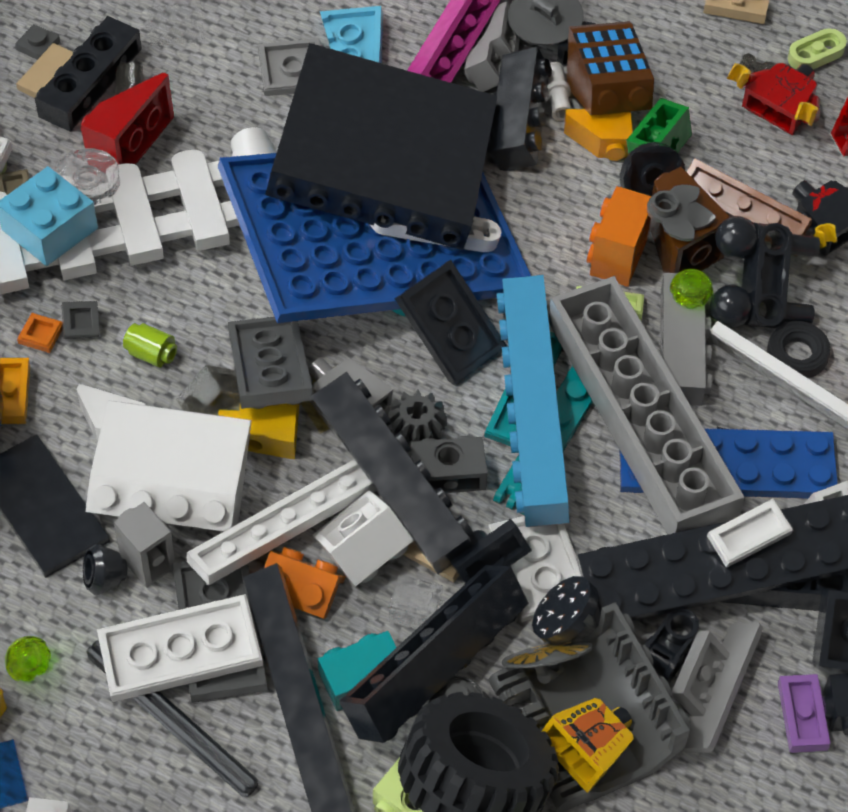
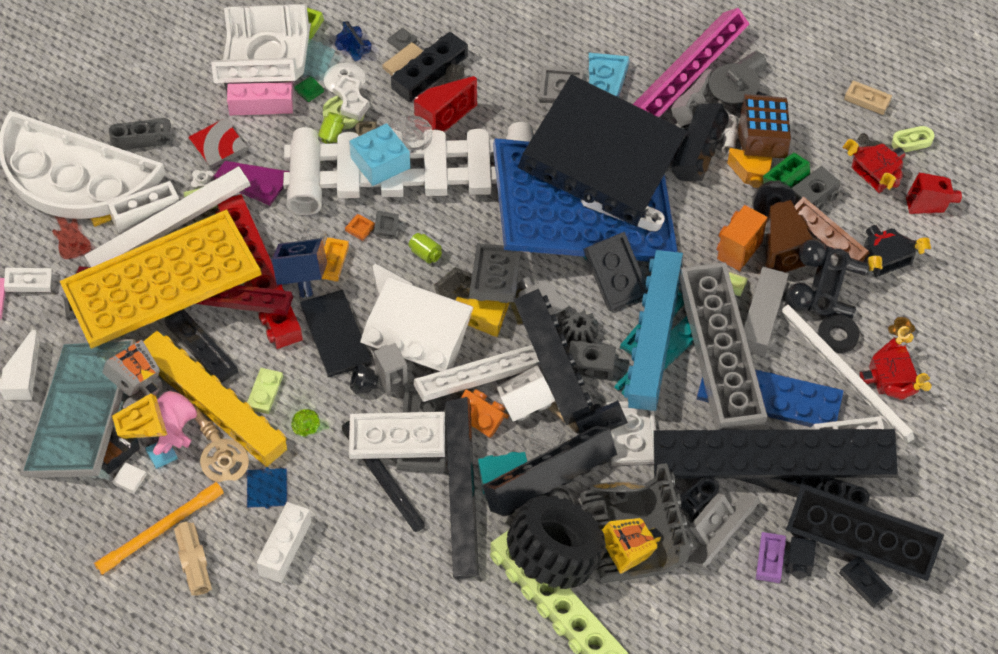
camera: 15 degrees right, 0 degrees up
(564, 609) = (636, 461): black tile -> none
(680, 212) = (781, 229): dark grey plate -> none
(695, 296) = (776, 286): clear neon green plate -> none
(708, 140) = (818, 187): none -> dark grey brick
(749, 533) = (763, 439): white tile -> none

